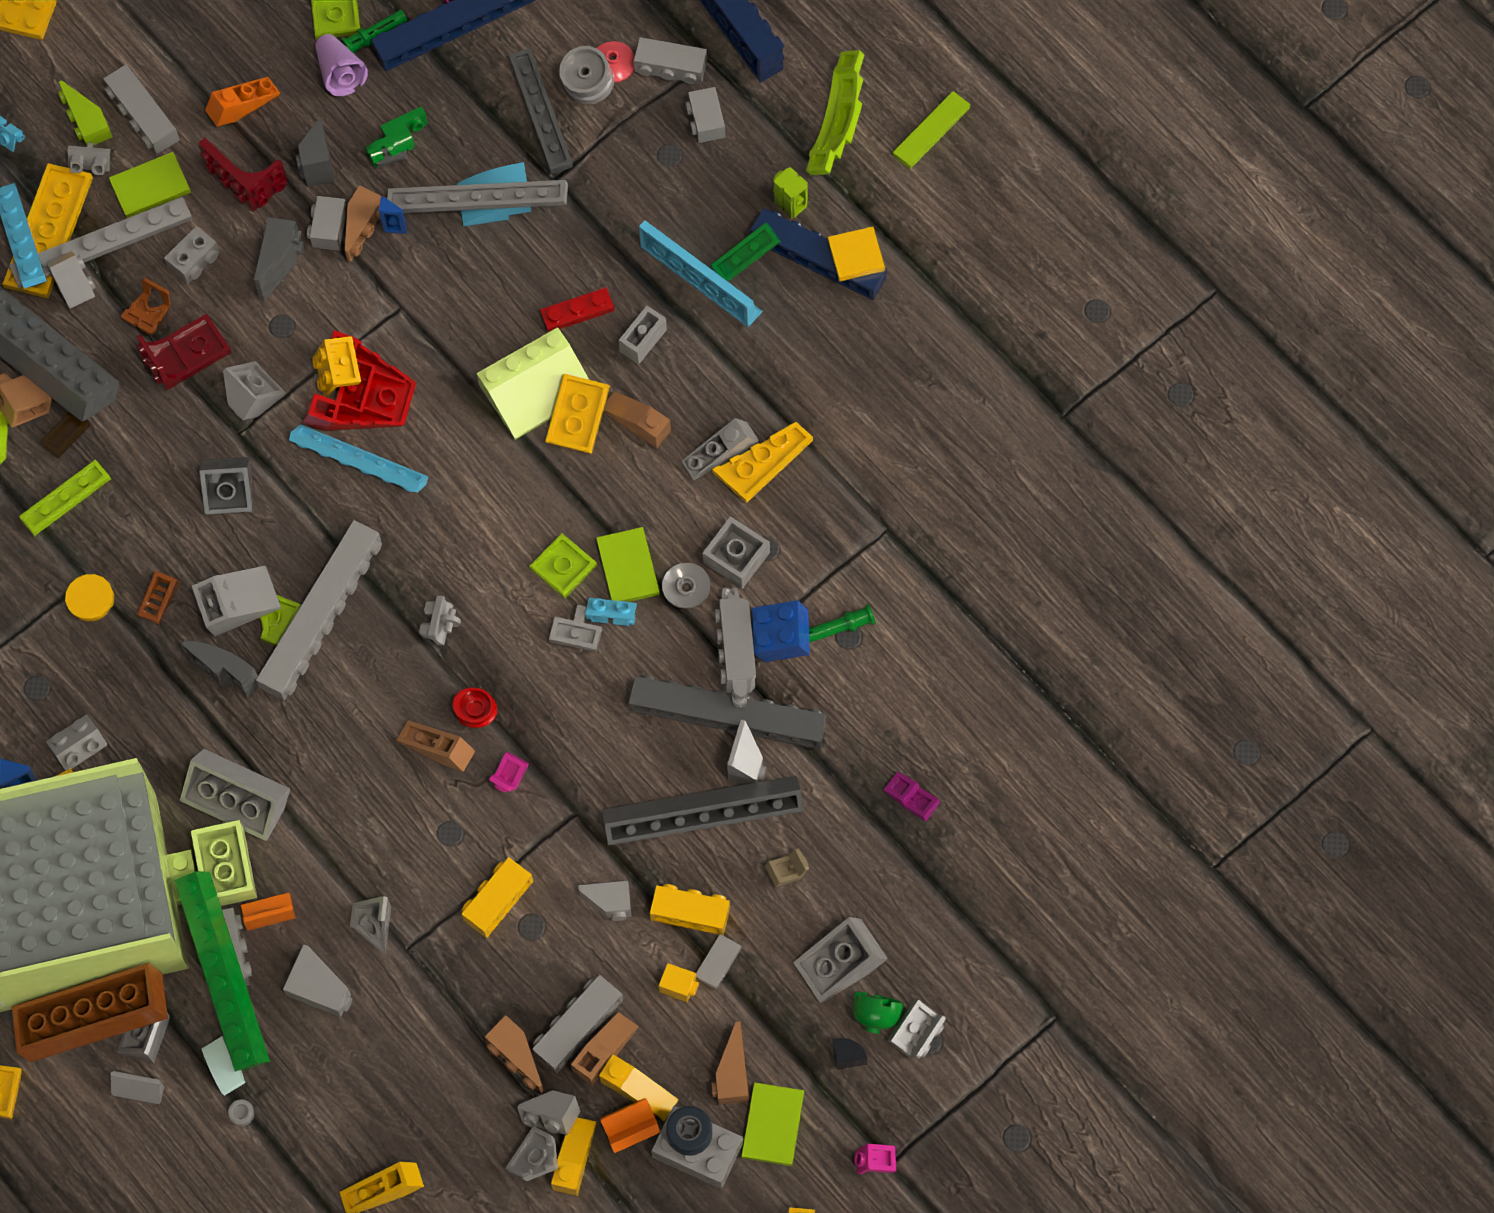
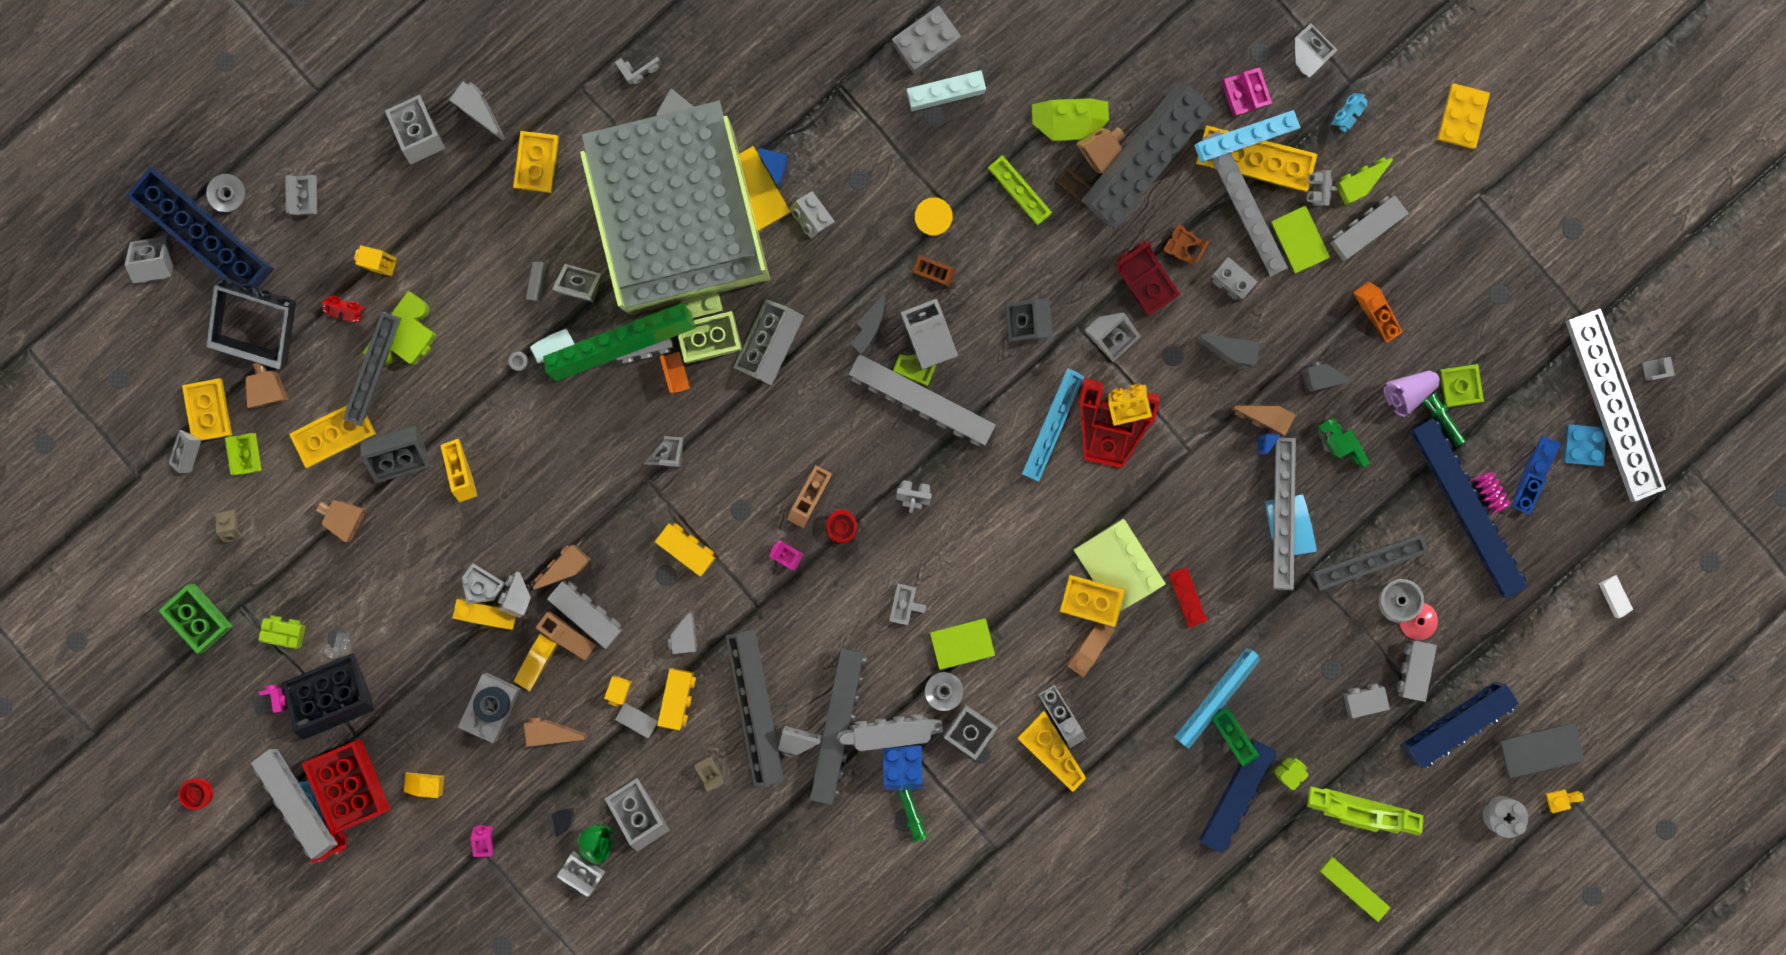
camera: 85 degrees right, 20 degrees up
(71, 279) = (1207, 182): light grey brick -> none
(89, 1012) = (583, 244): dark orange brick -> none
(248, 188) = (1291, 326): dark red bracket -> none
(317, 985) = (615, 414): light grey slope -> none
(328, 223) = (1264, 389): light grey brick -> none
(563, 565) = (962, 592): lime tile -> none
(601, 610) = (922, 632): medium azure hinge -> none
(630, 1125) = (504, 657): orange panel -> none
(642, 335) = (1161, 652): light grey brick -> none
(773, 1124) = (510, 763): lime tile -> none
(856, 253) = (1233, 828): yellow tile -> none
(911, 796) = (770, 869): magenta slope -> none

